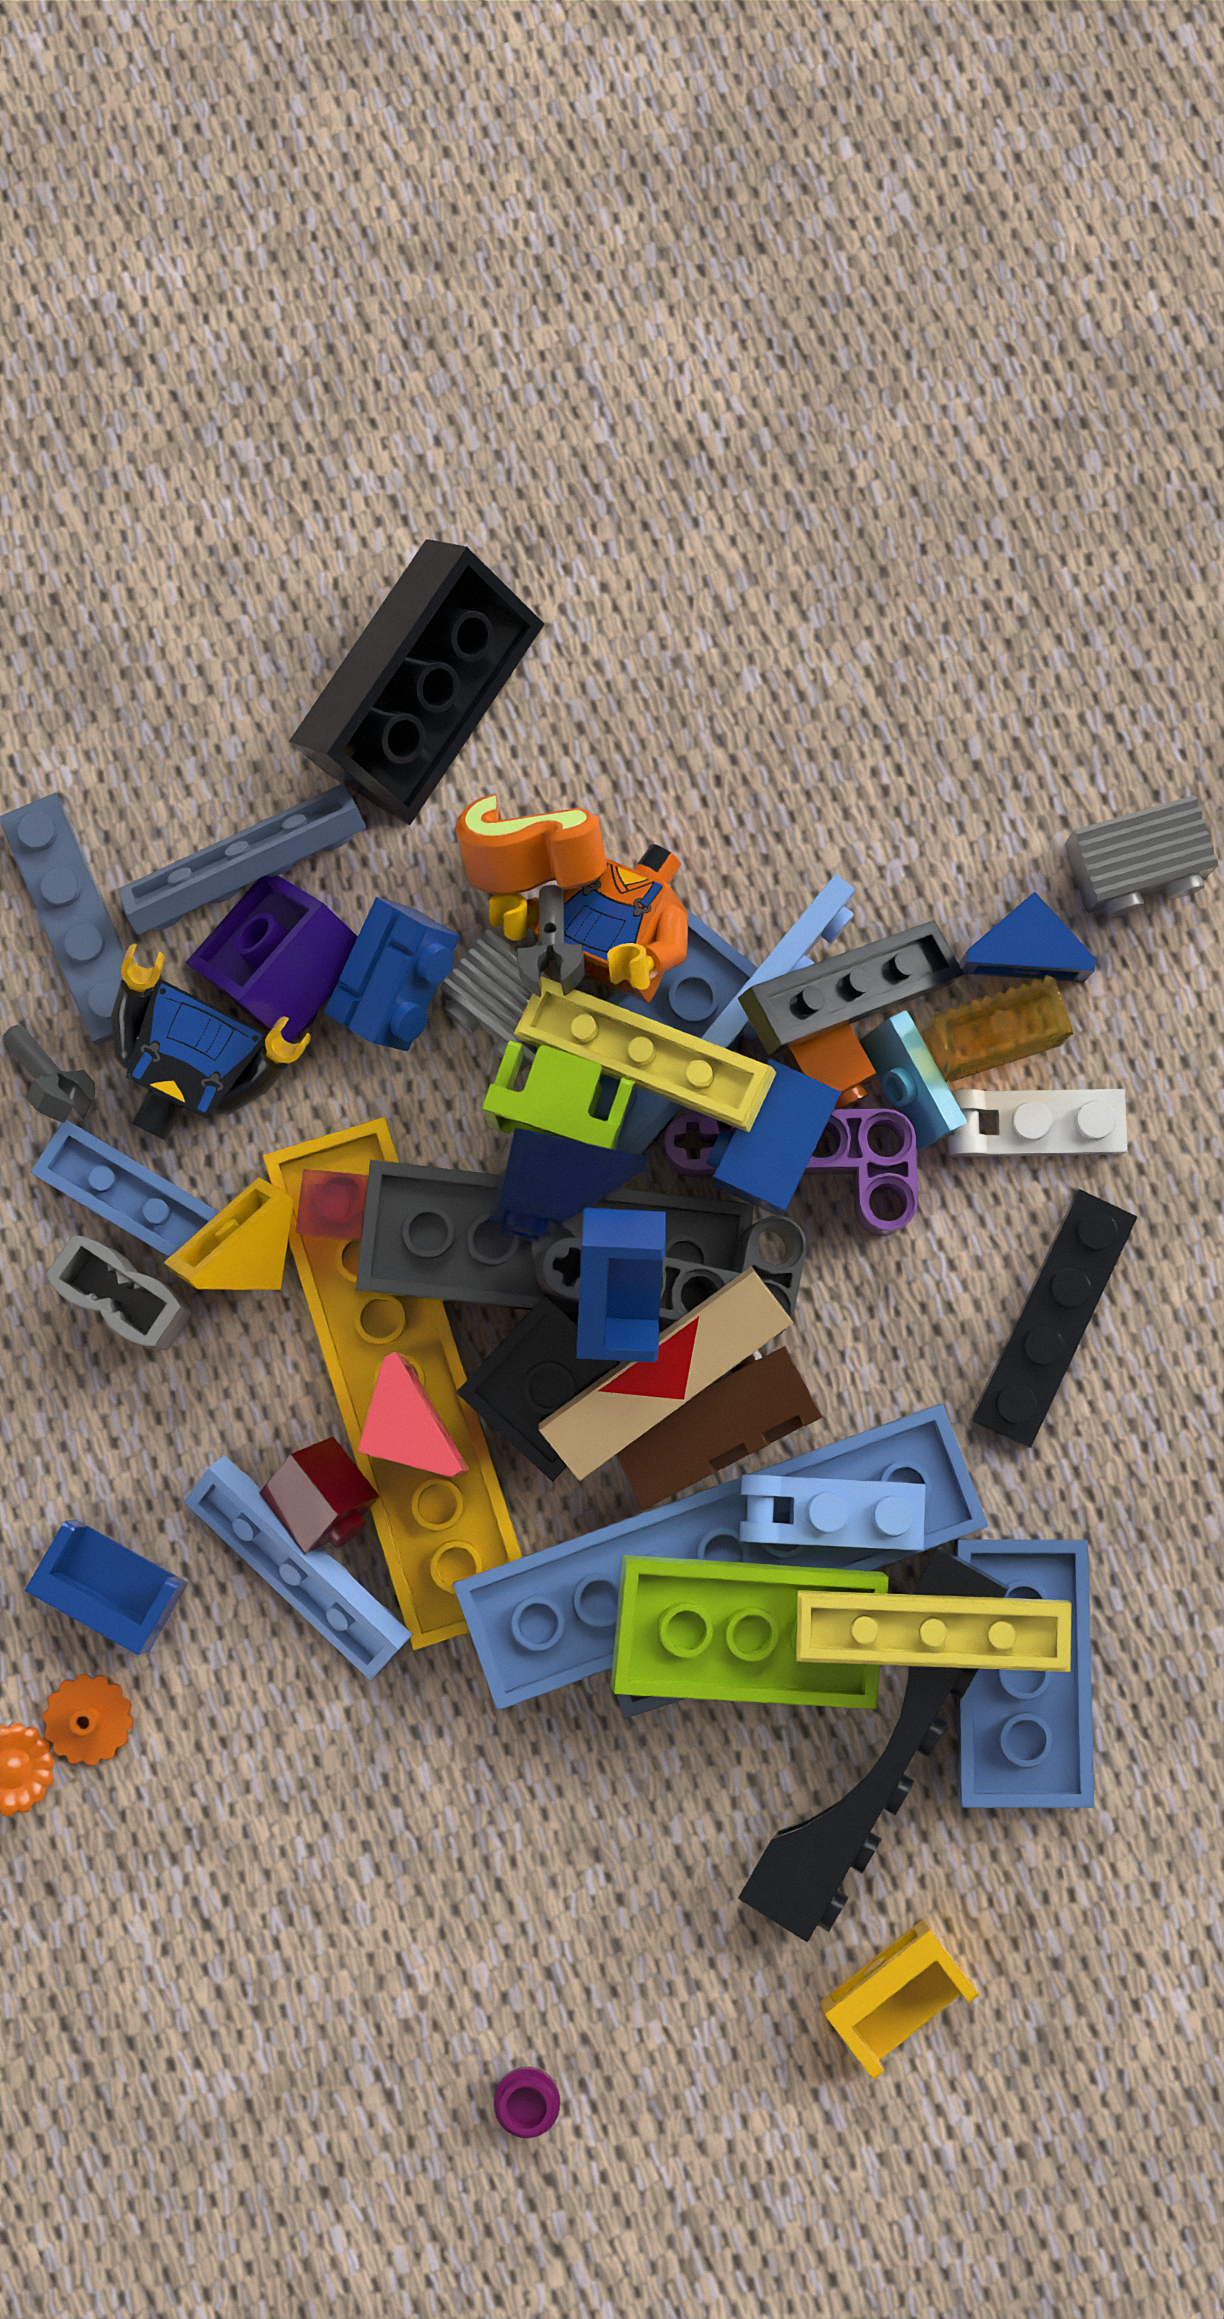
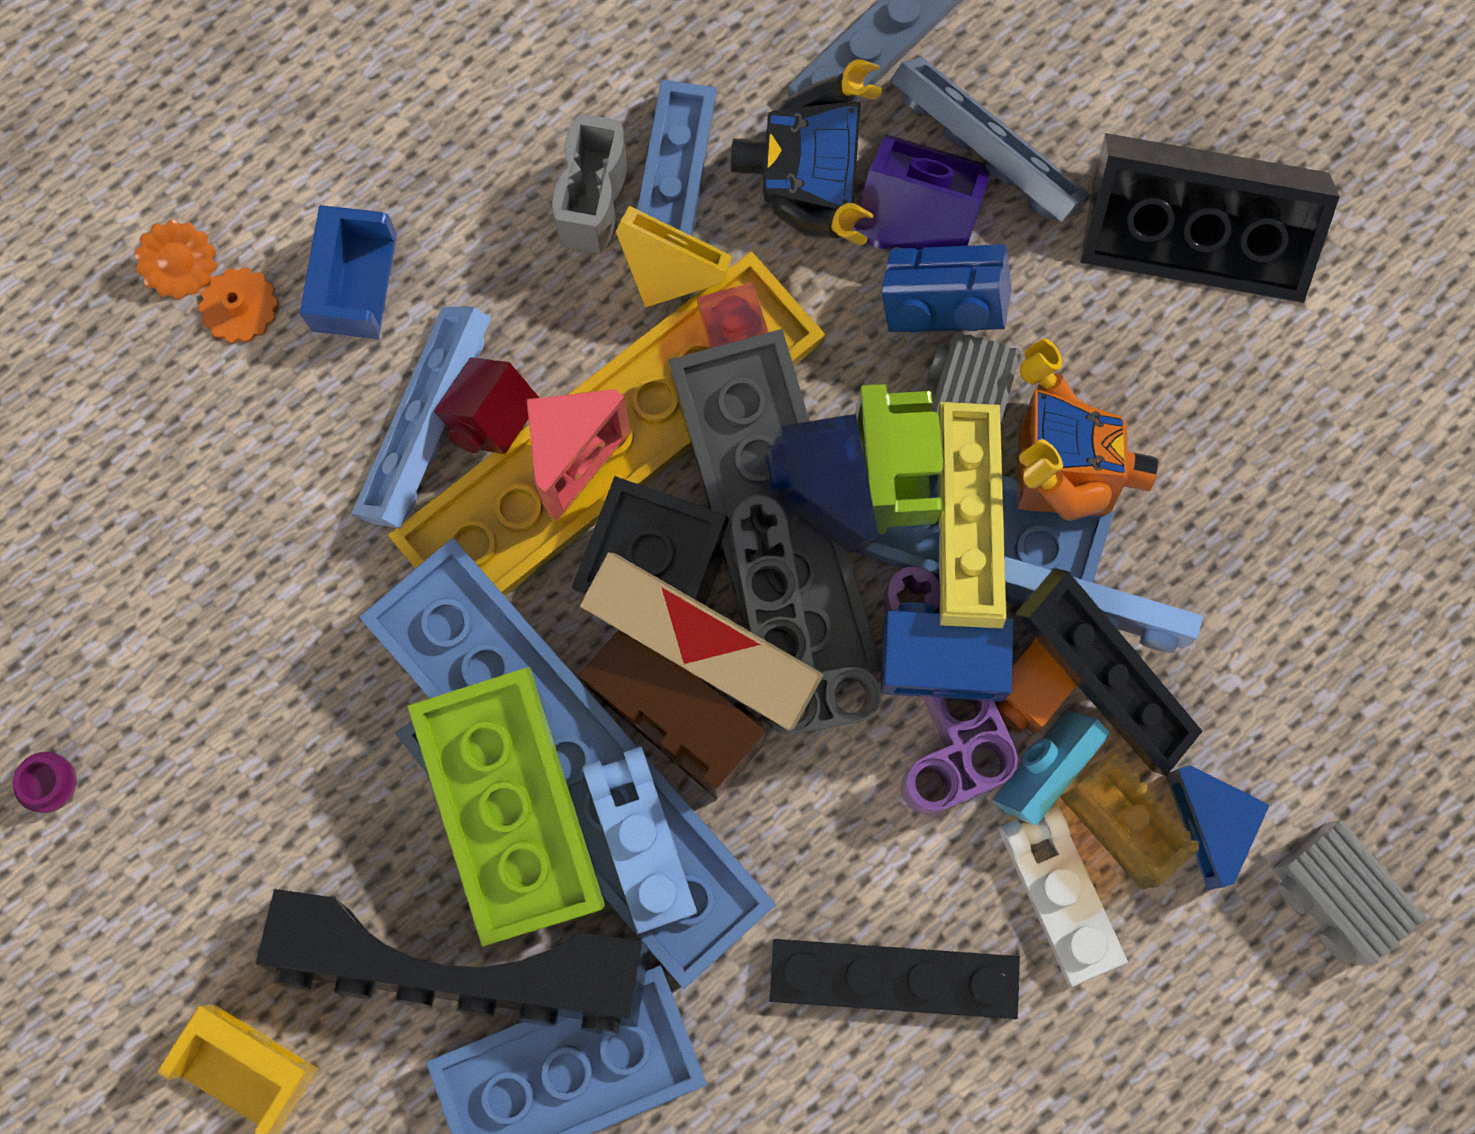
camera: 65 degrees right, 5 degrees down
(52, 1090) = (739, 67): dark grey bar -> none
(530, 849) = (1103, 355): orange animal -> none
(551, 946) = (1025, 421): dark grey bar -> none
(620, 1284) = (758, 559): blue panel -> none
(934, 1631) = (567, 966): light yellow tile -> none

